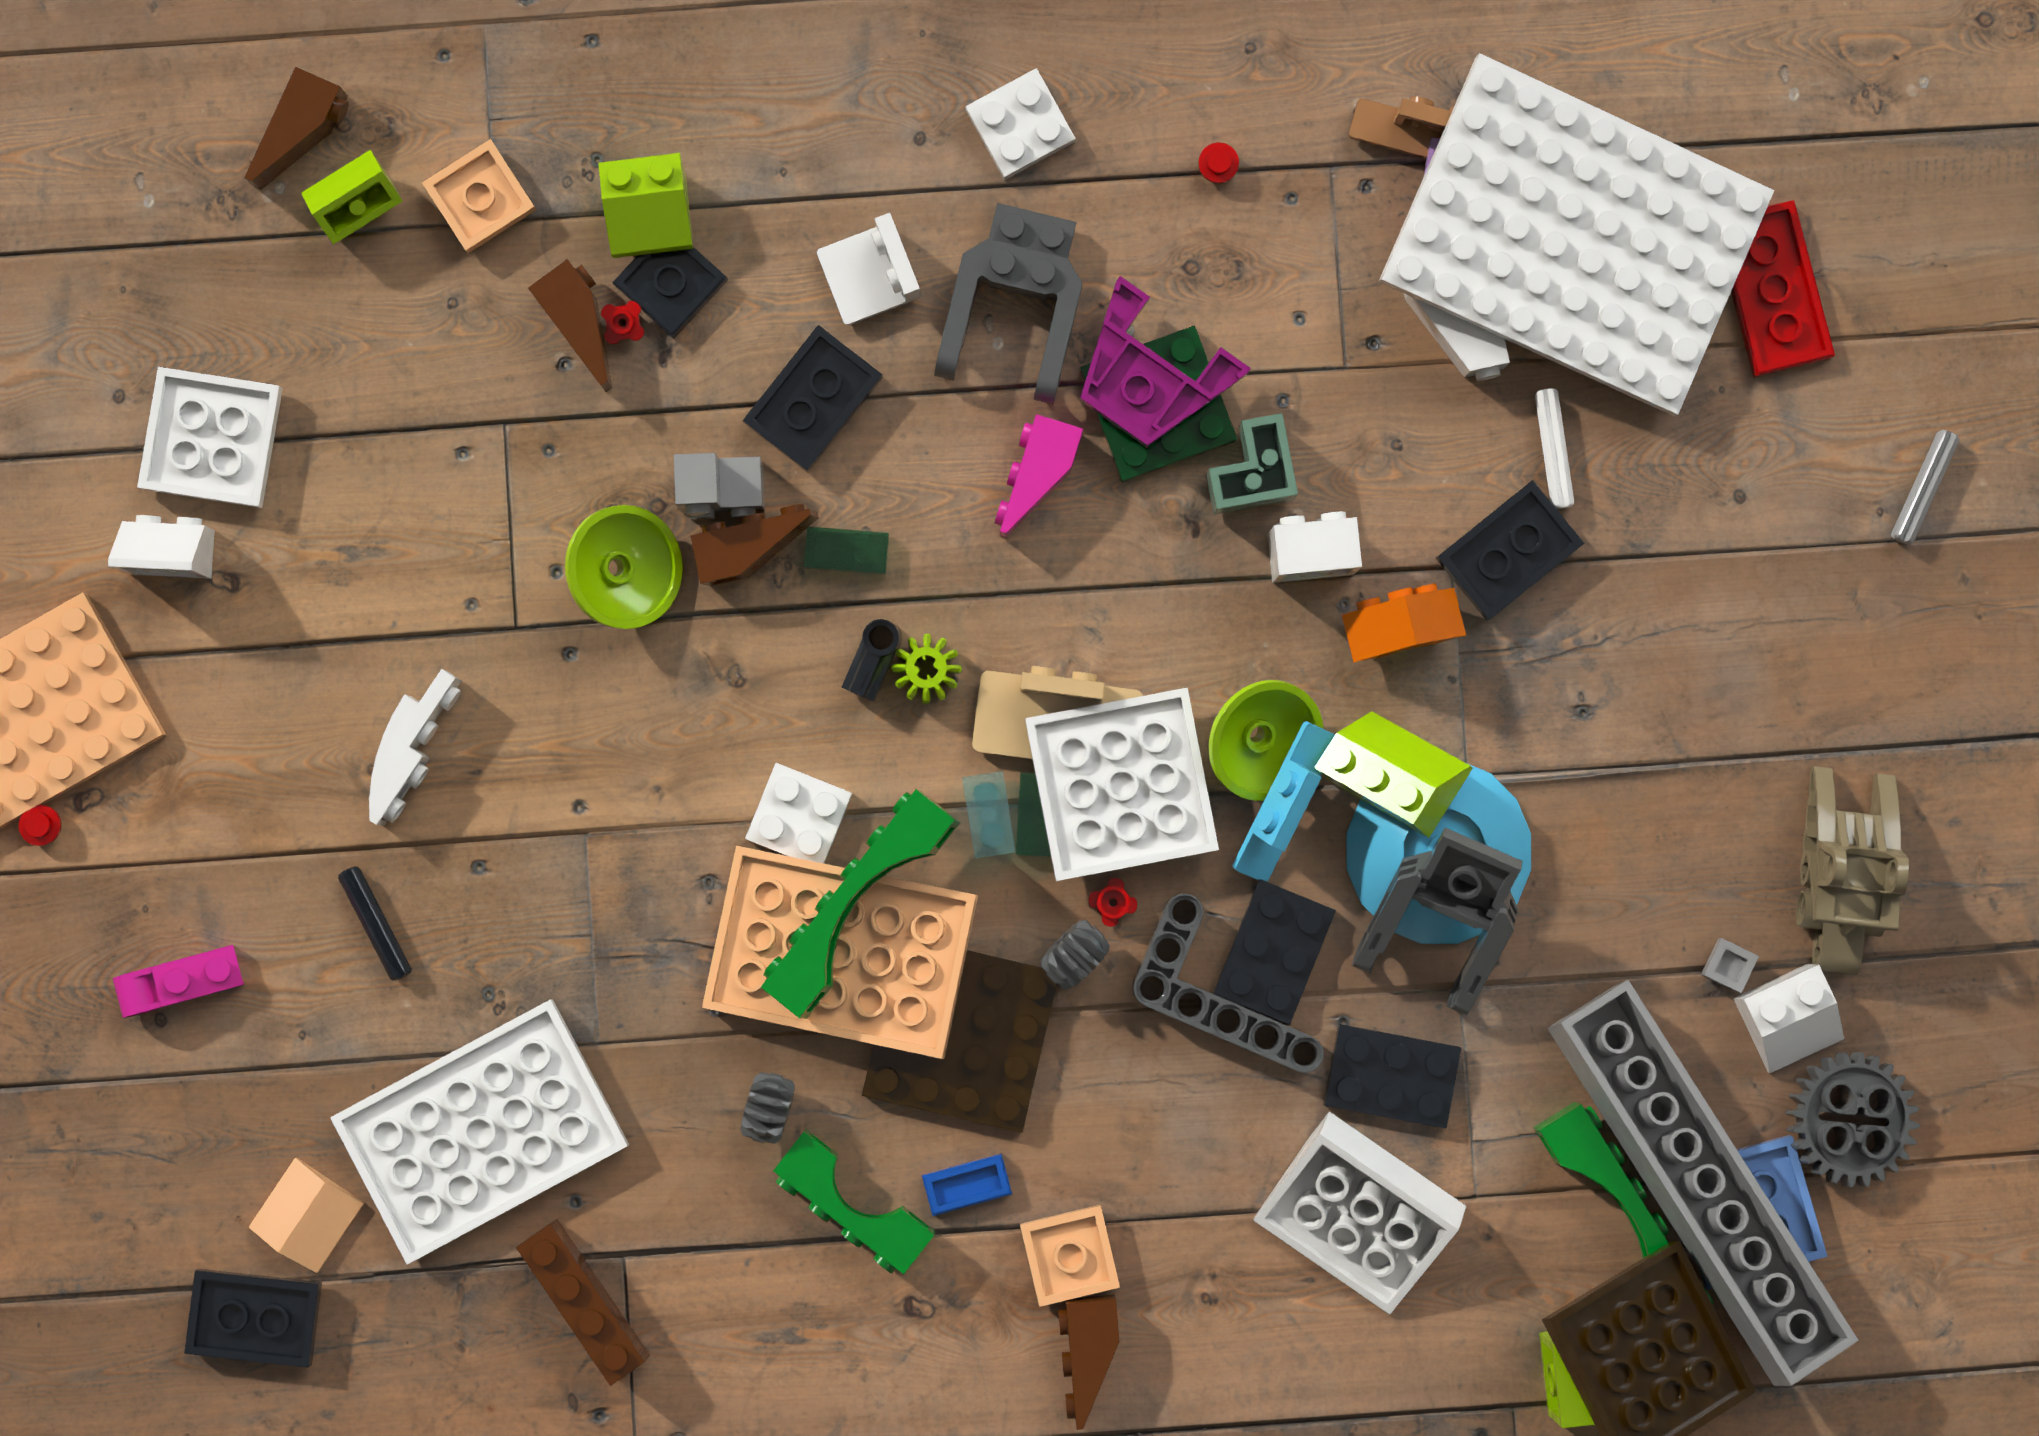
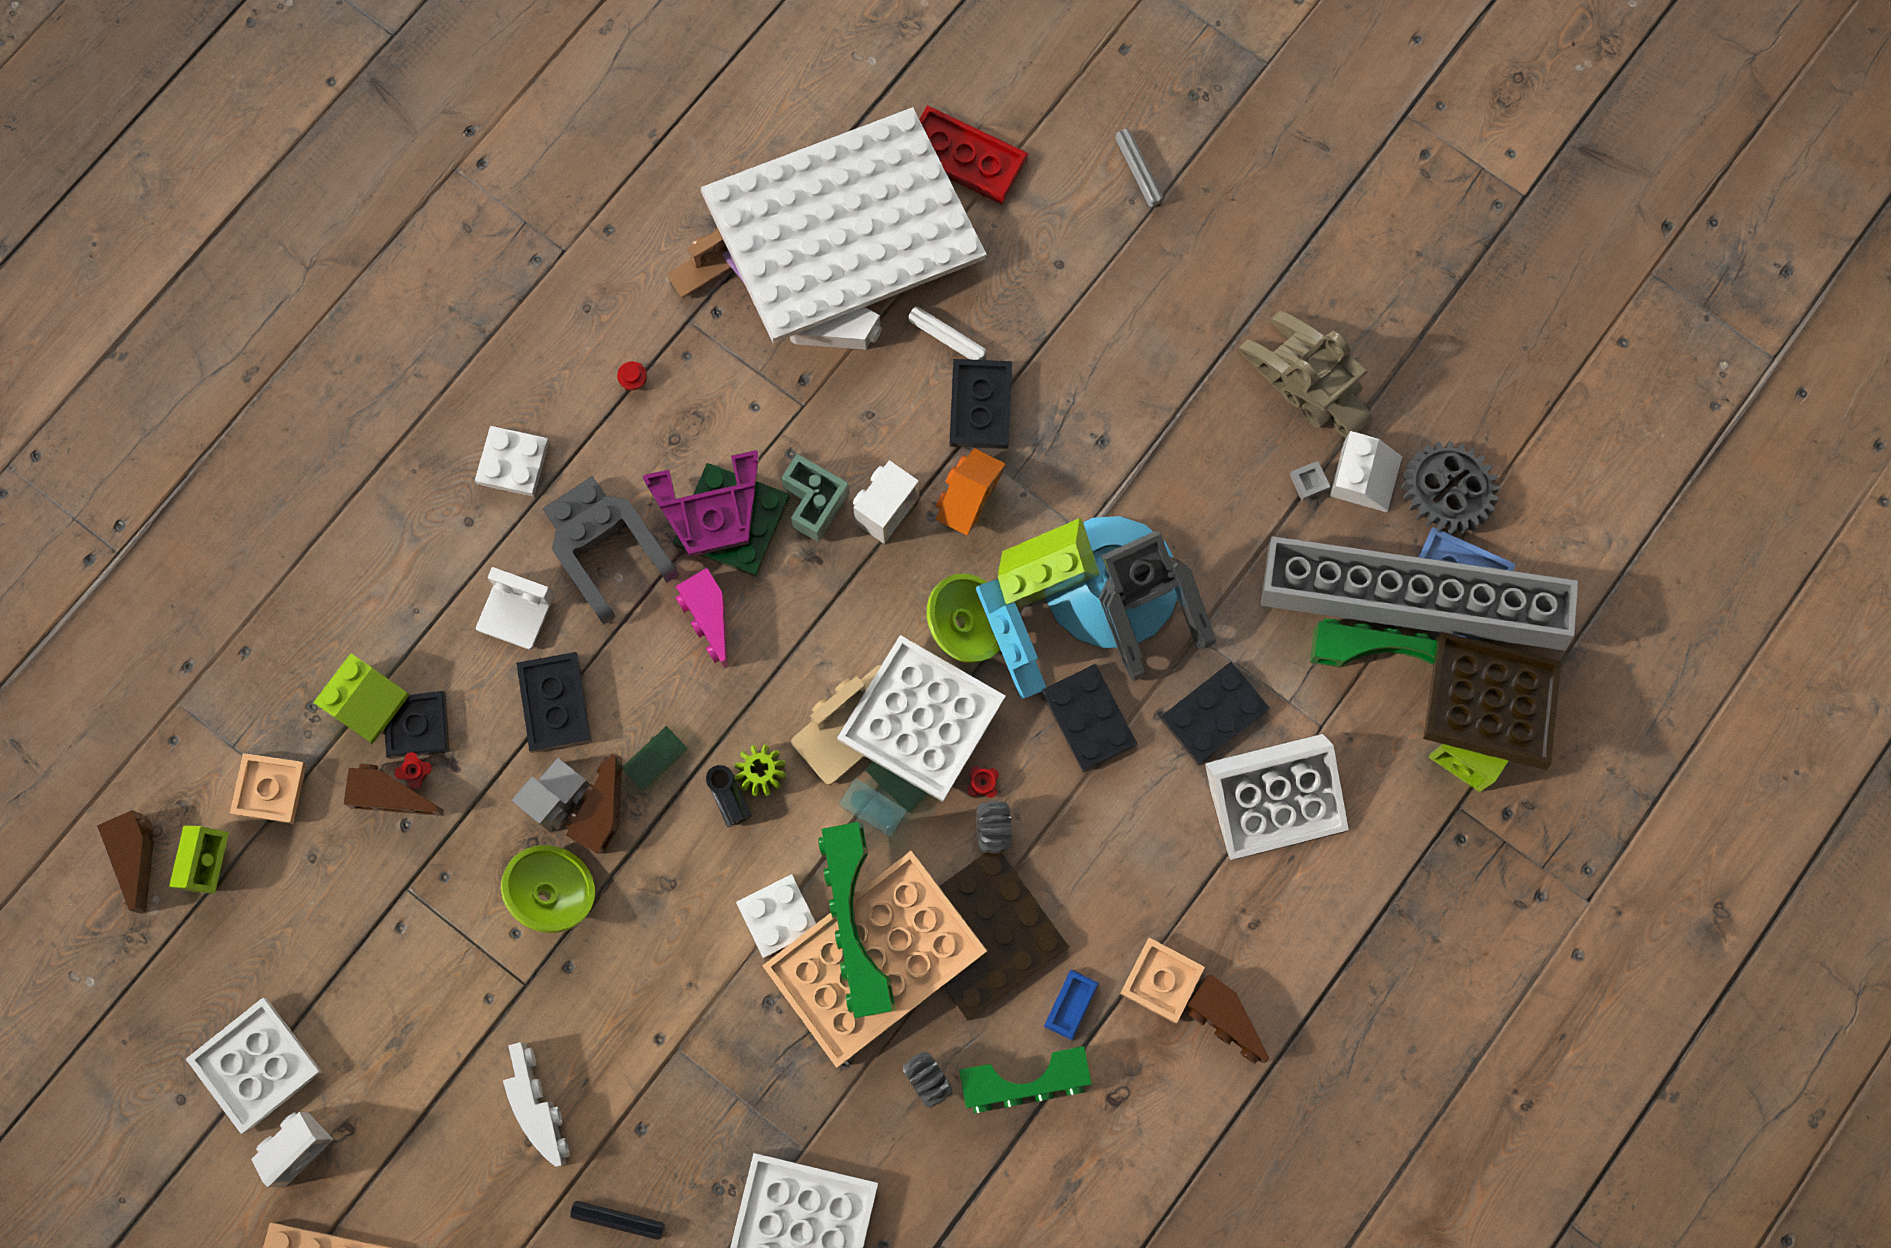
camera: 45 degrees left, 10 degrees down
(1211, 1004) = (1088, 775): dark grey beam -> none

